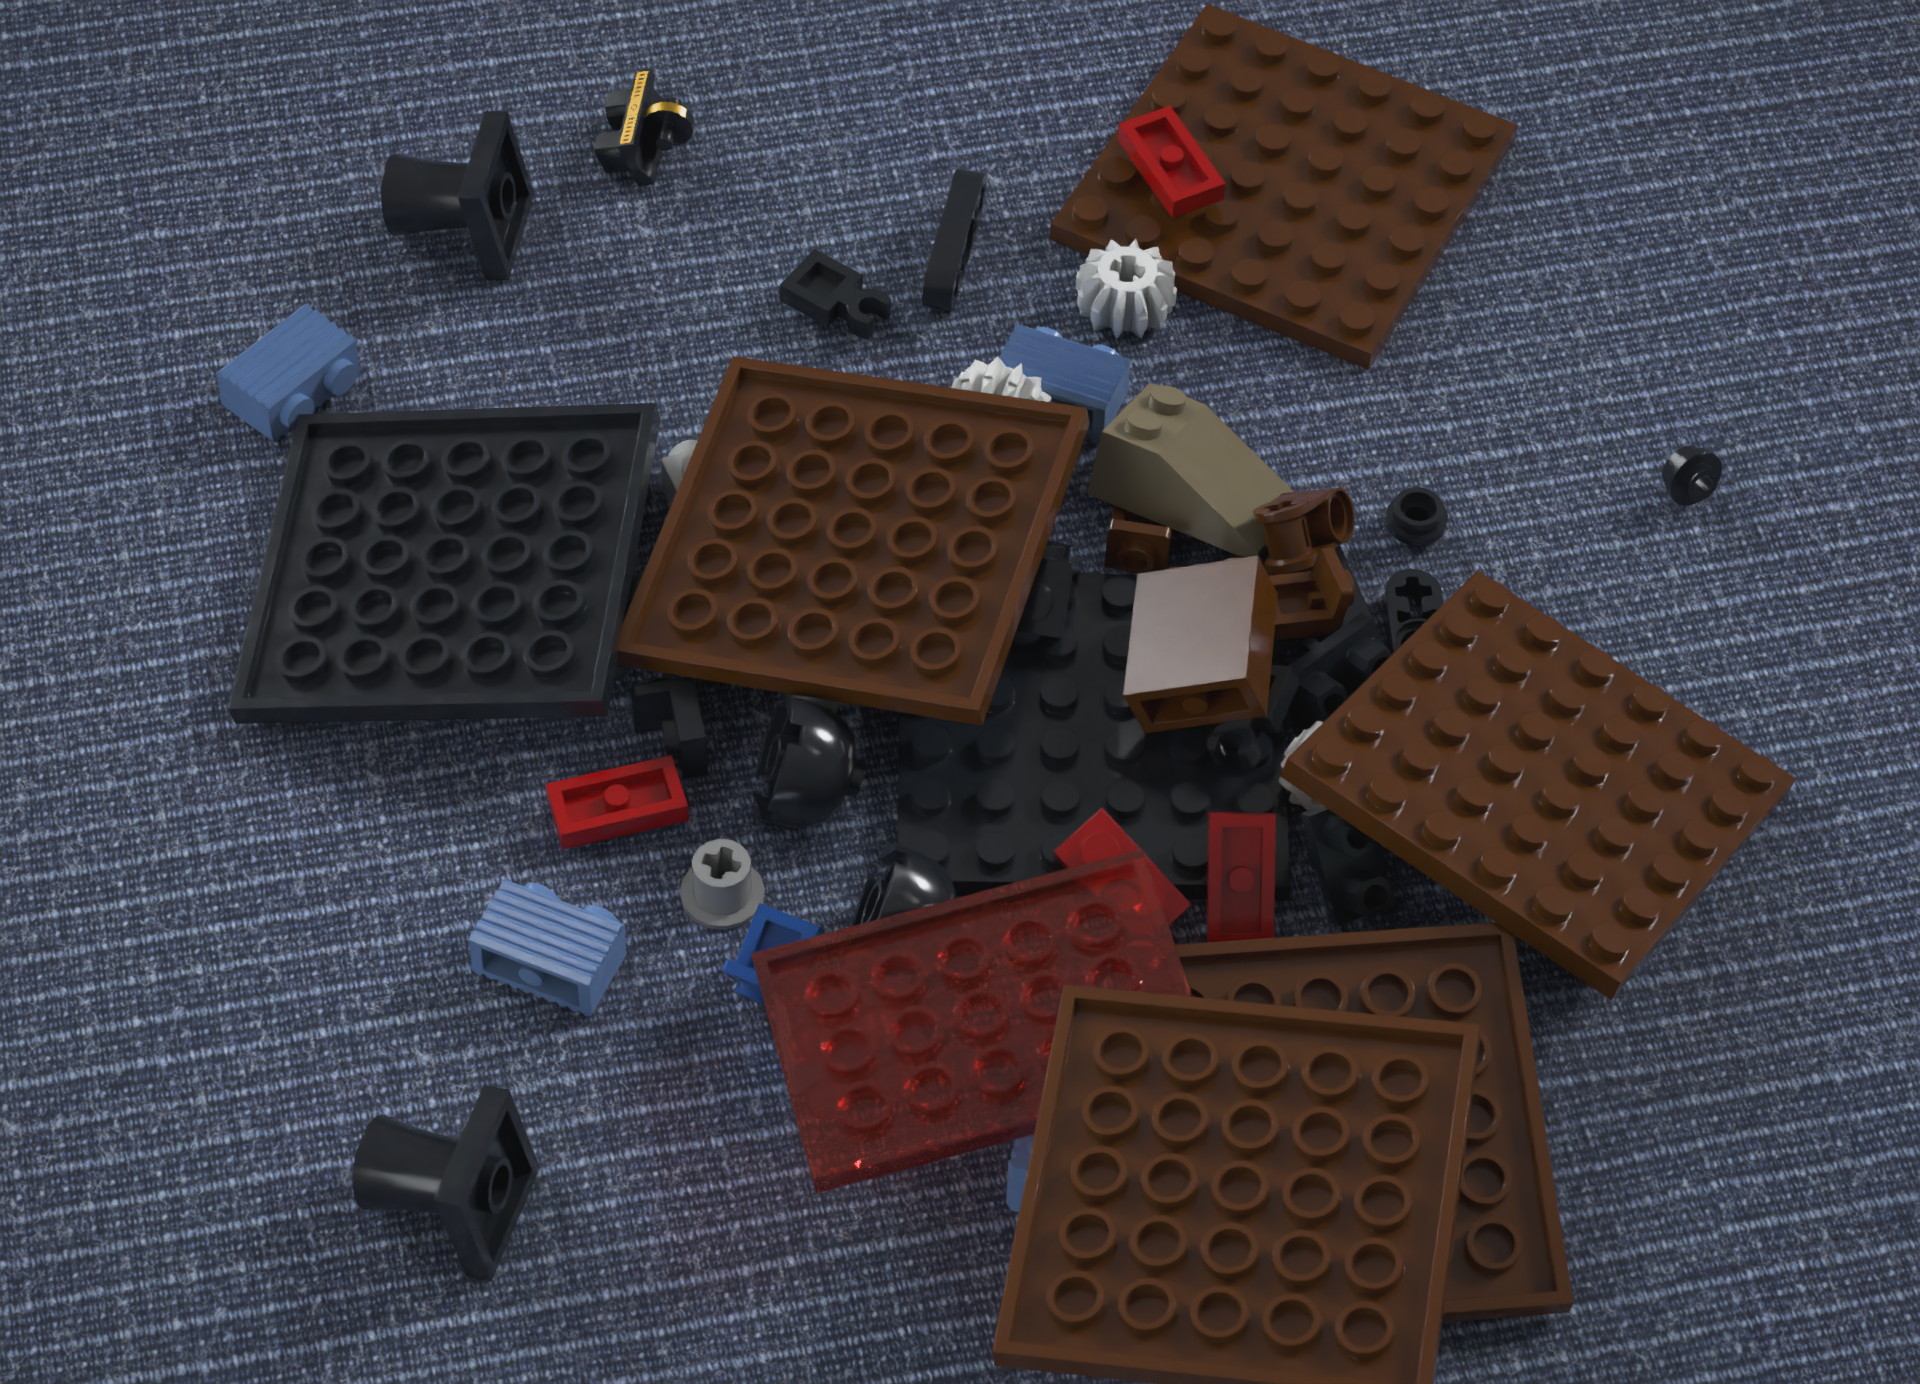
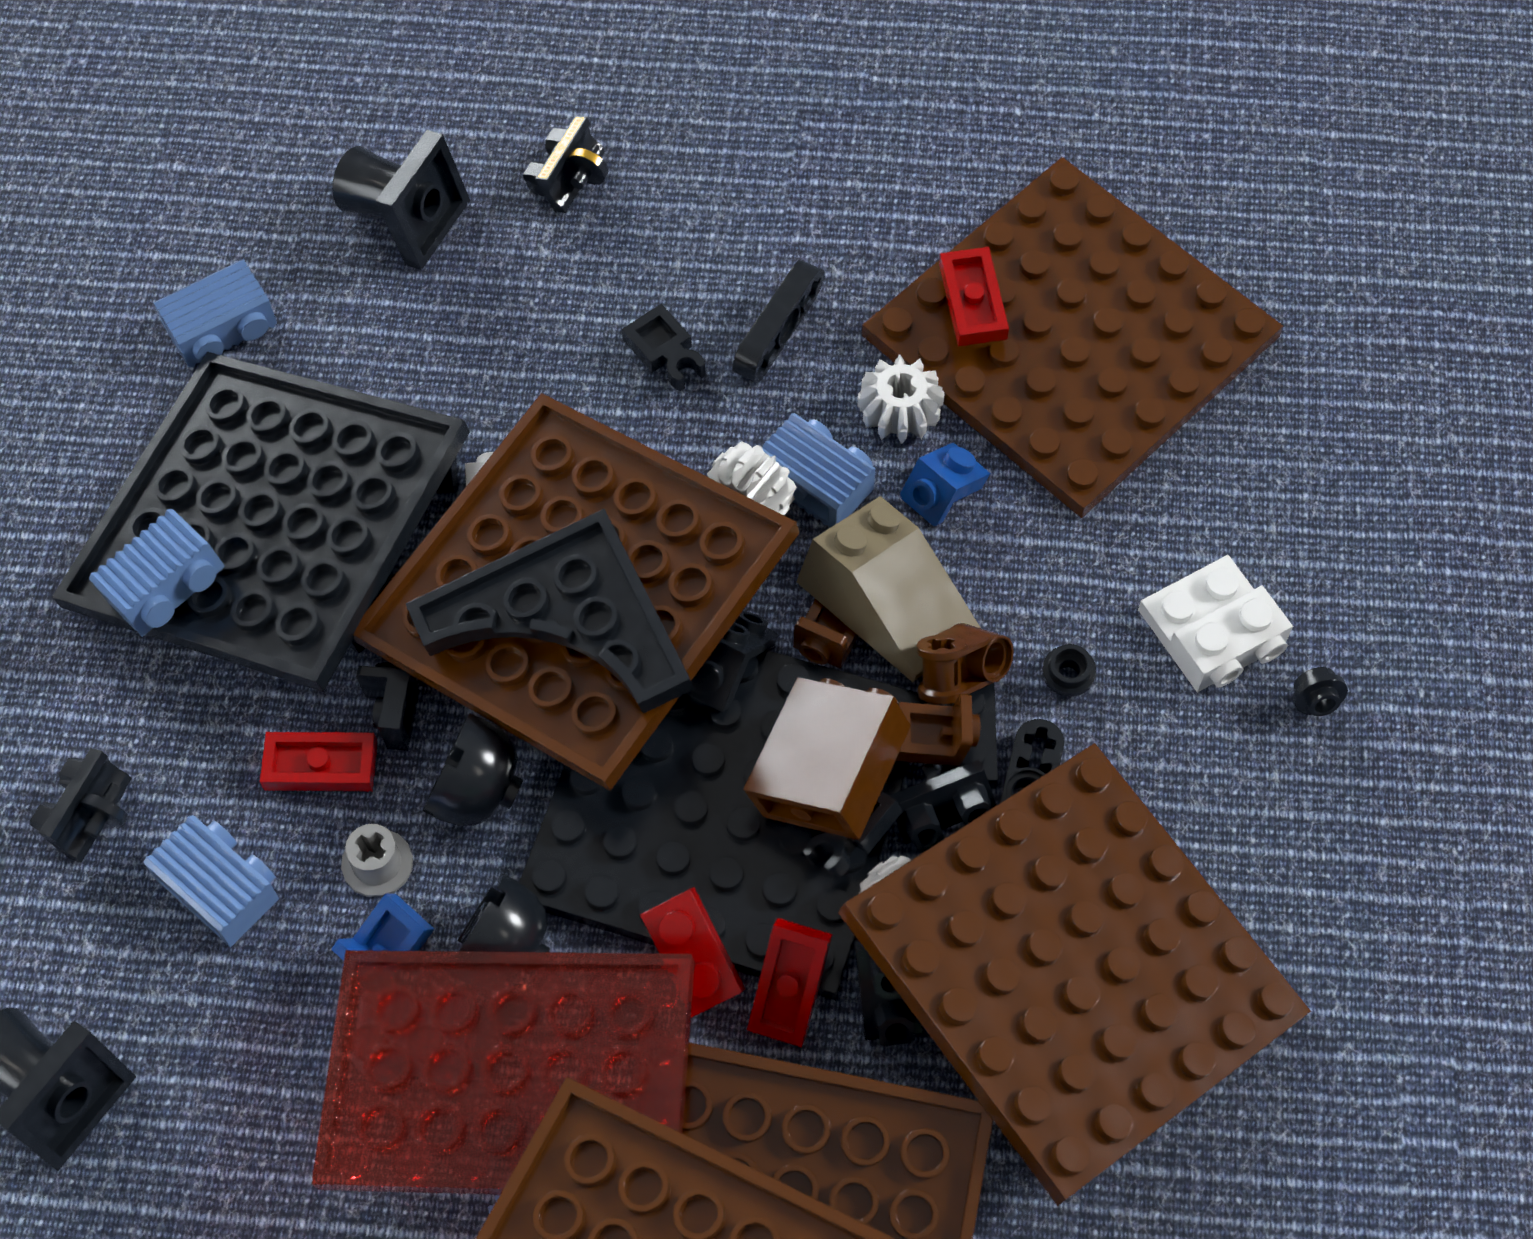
camera: 20 degrees right, 10 degrees up
(363, 640) = (157, 572): none -> medium blue brick
(371, 905) = (87, 804): none -> black hips
(862, 532) = (564, 591): none -> black plate
(1205, 359) = (941, 480): none -> blue bracket
(1557, 436) = (1216, 624): none -> white plate

